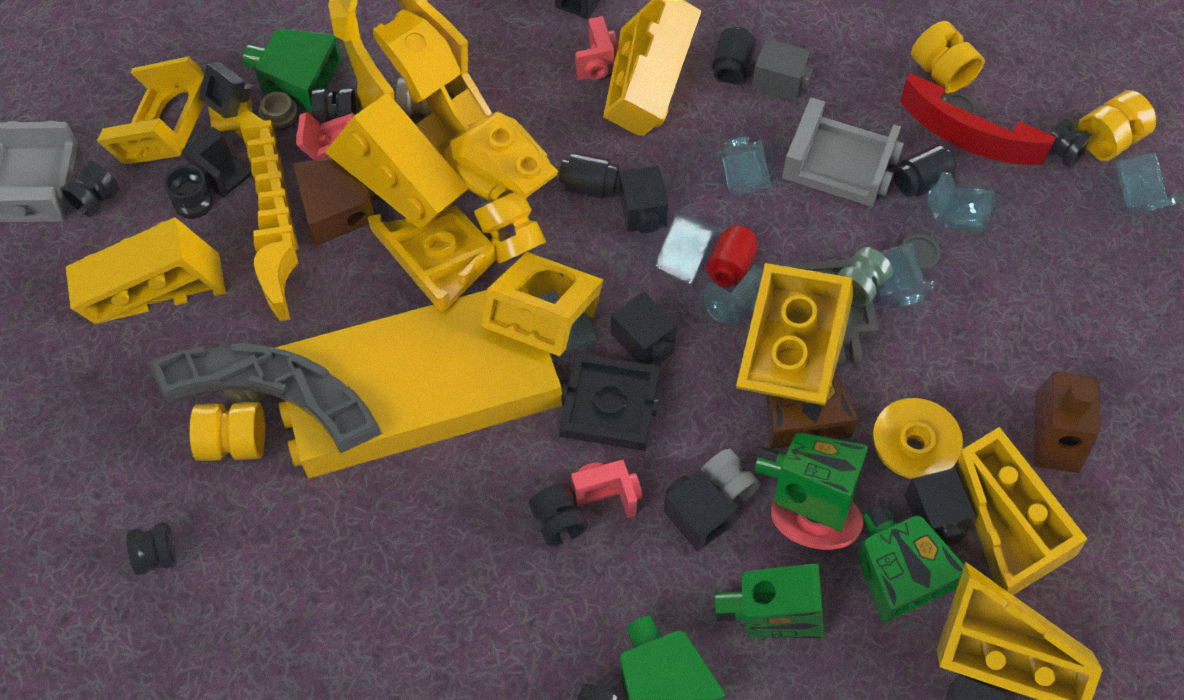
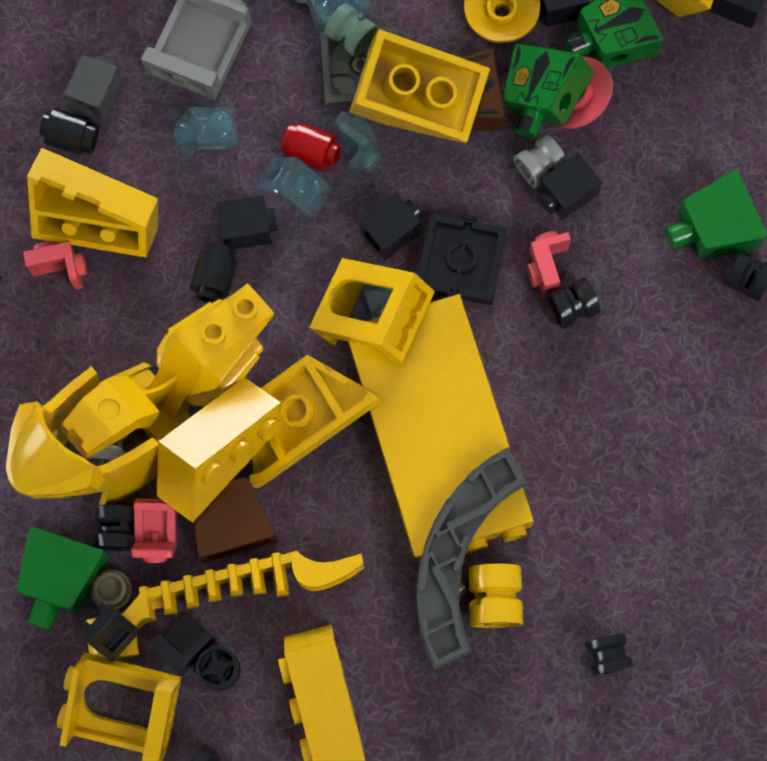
camera: 85 degrees left, 15 degrees up
(503, 213) = (287, 341): yellow wheel -> none
(776, 603) = (659, 111): green torso -> none

